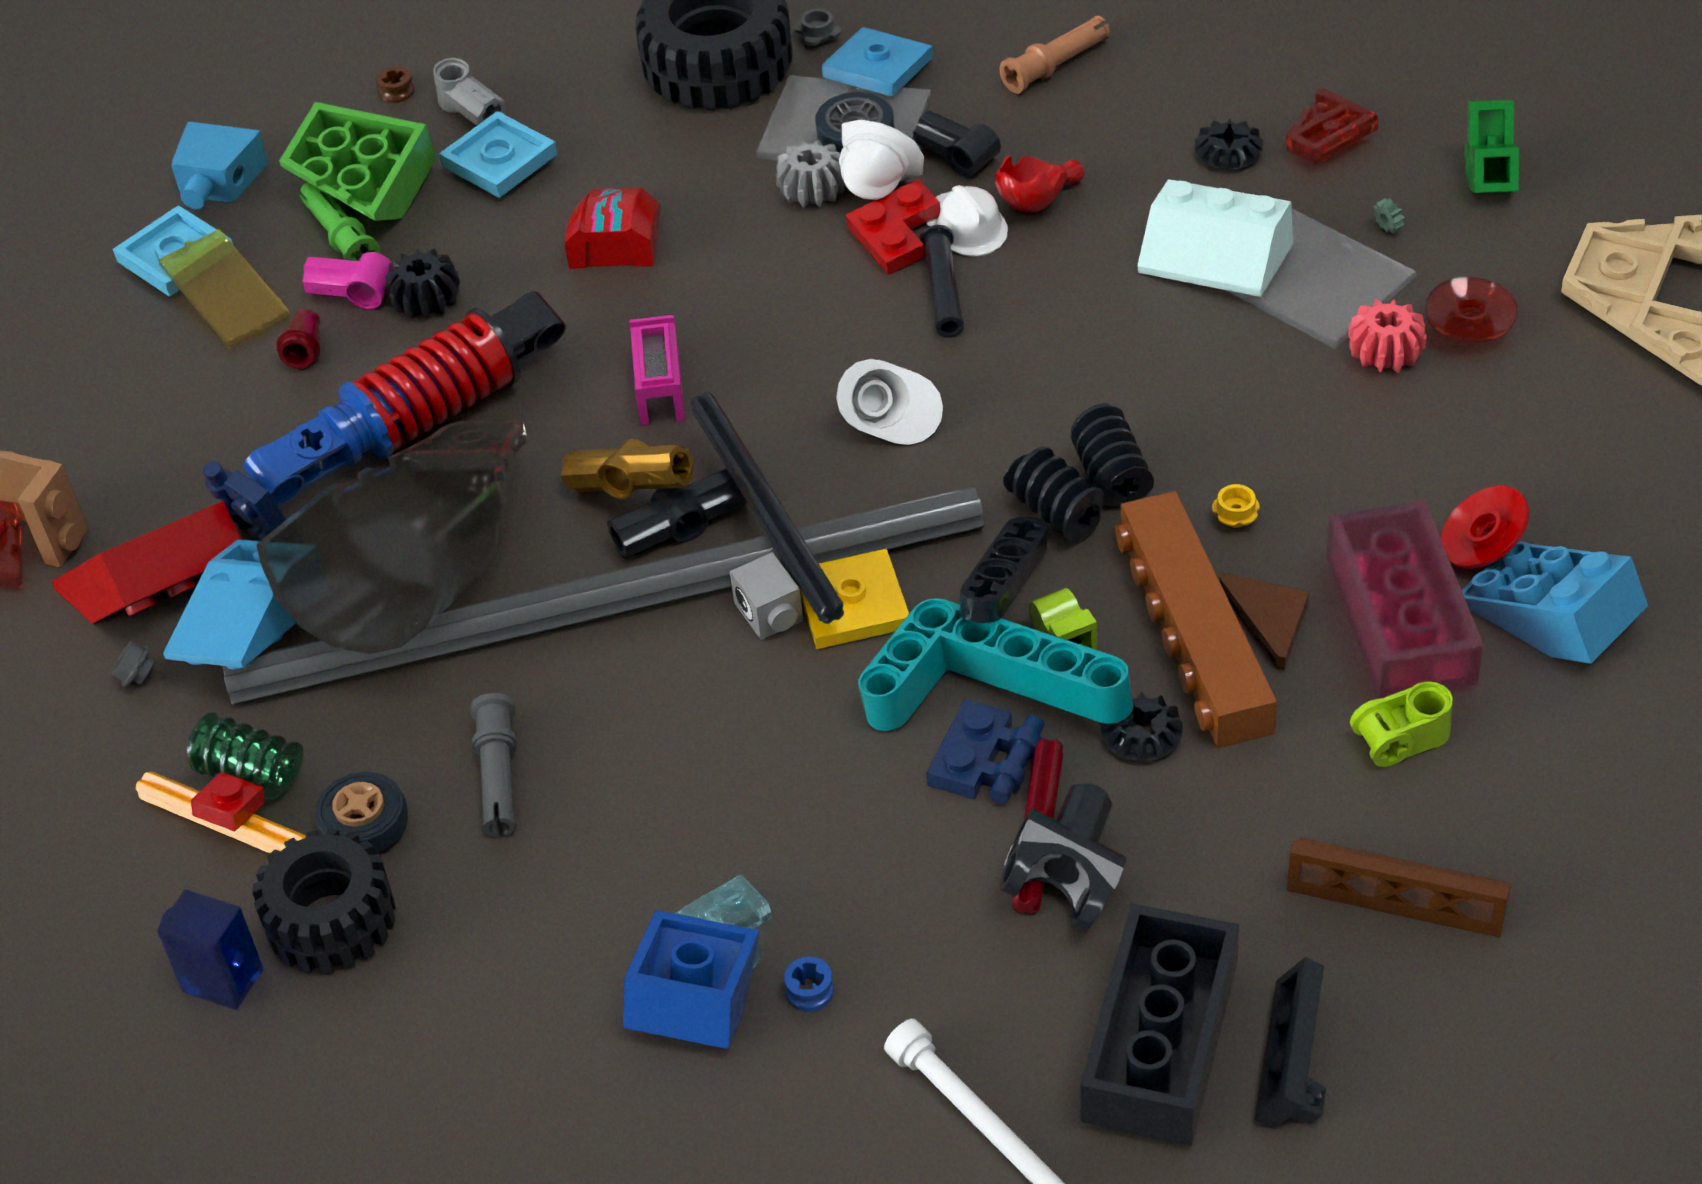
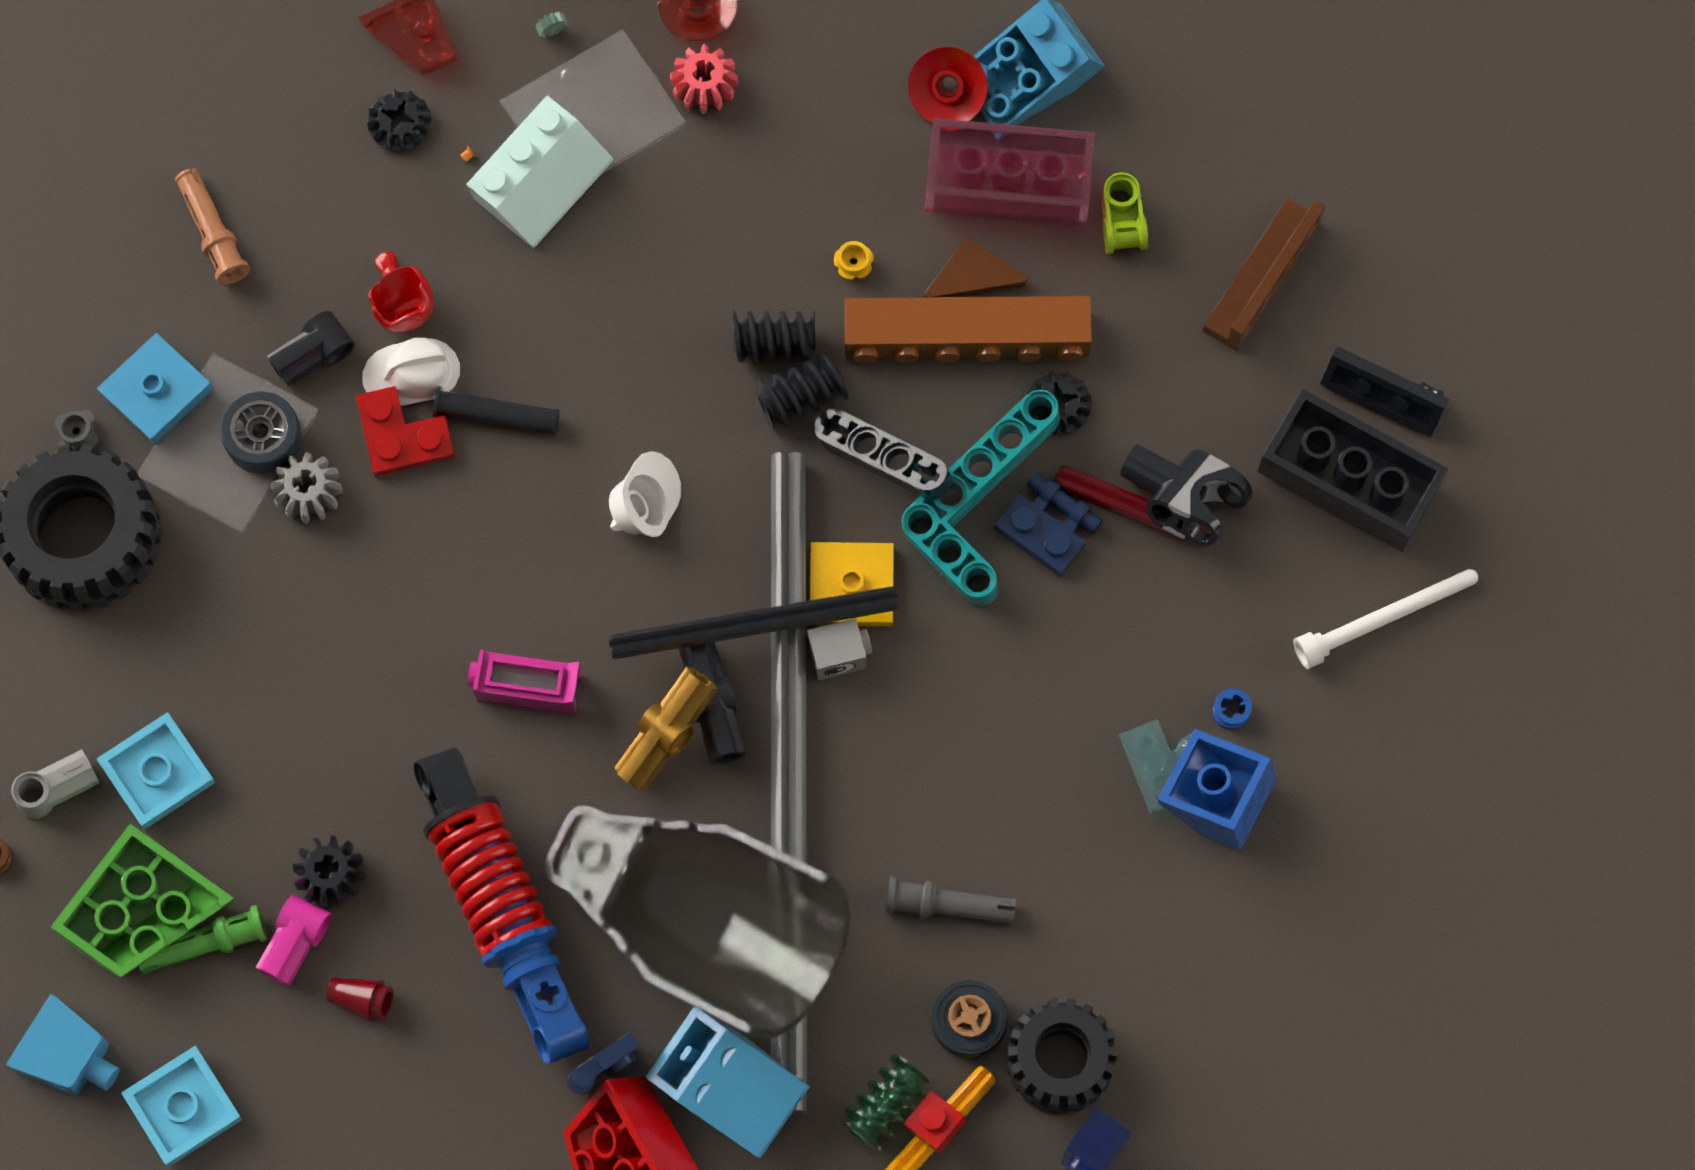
camera: 80 degrees left, 25 degrees up
(223, 287) = (260, 1062): clear yellow piece -> none
(613, 229) = (303, 683): red slope -> none
(877, 158) = (333, 428): white piece -> none
(1062, 617) = (943, 429): lime leg -> none

